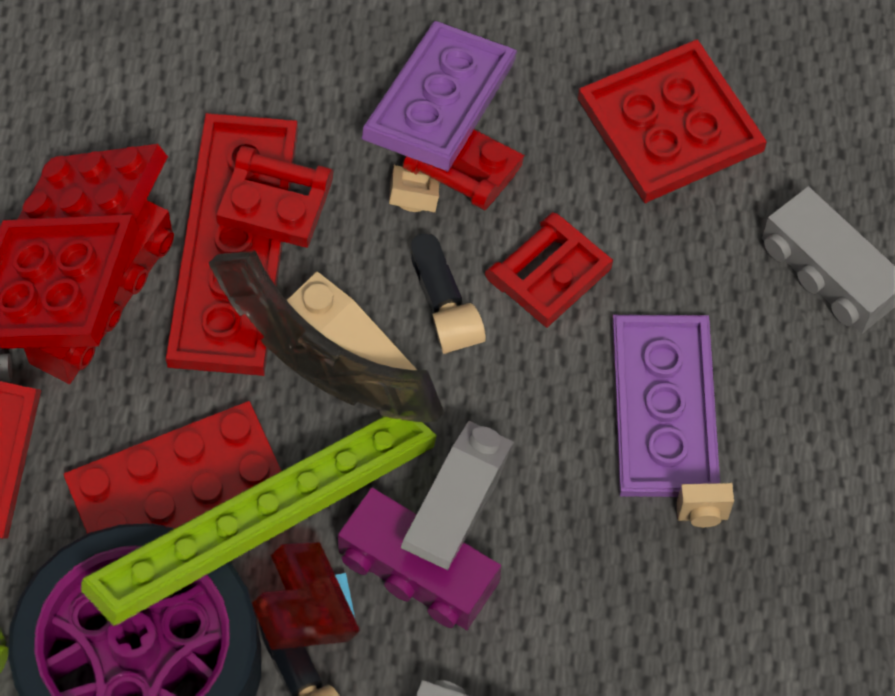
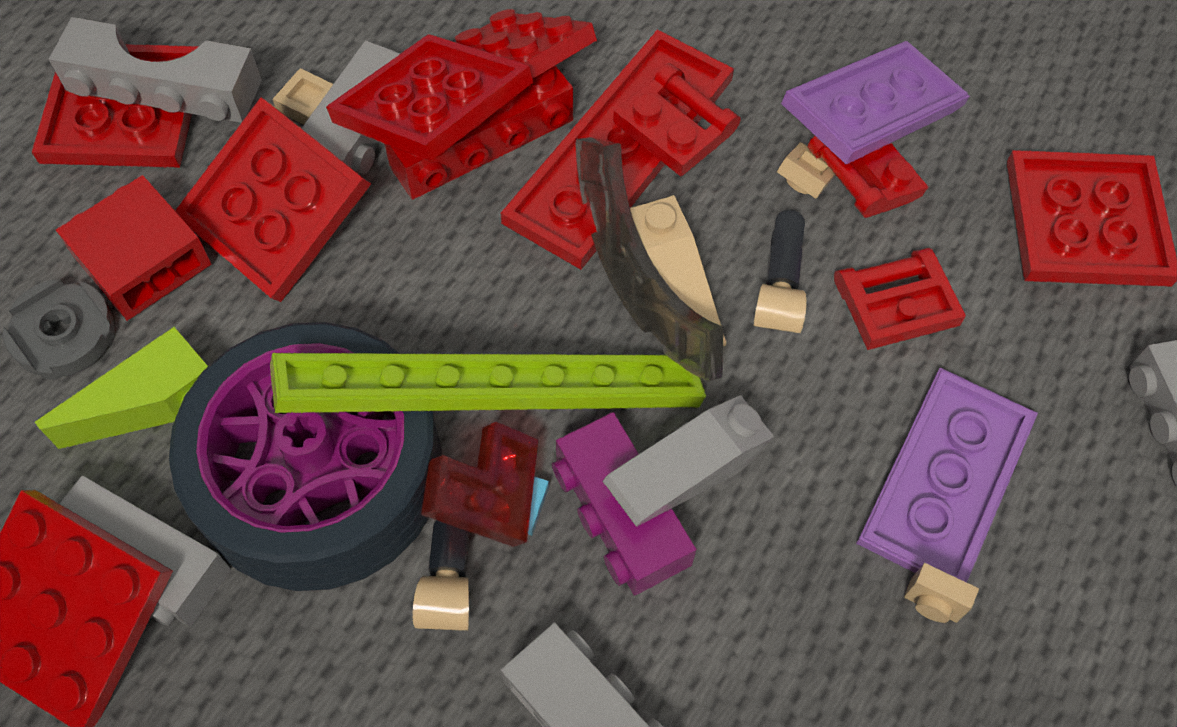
camera: 30 degrees right, 0 degrees up
(175, 473) = (451, 313): red plate -> none

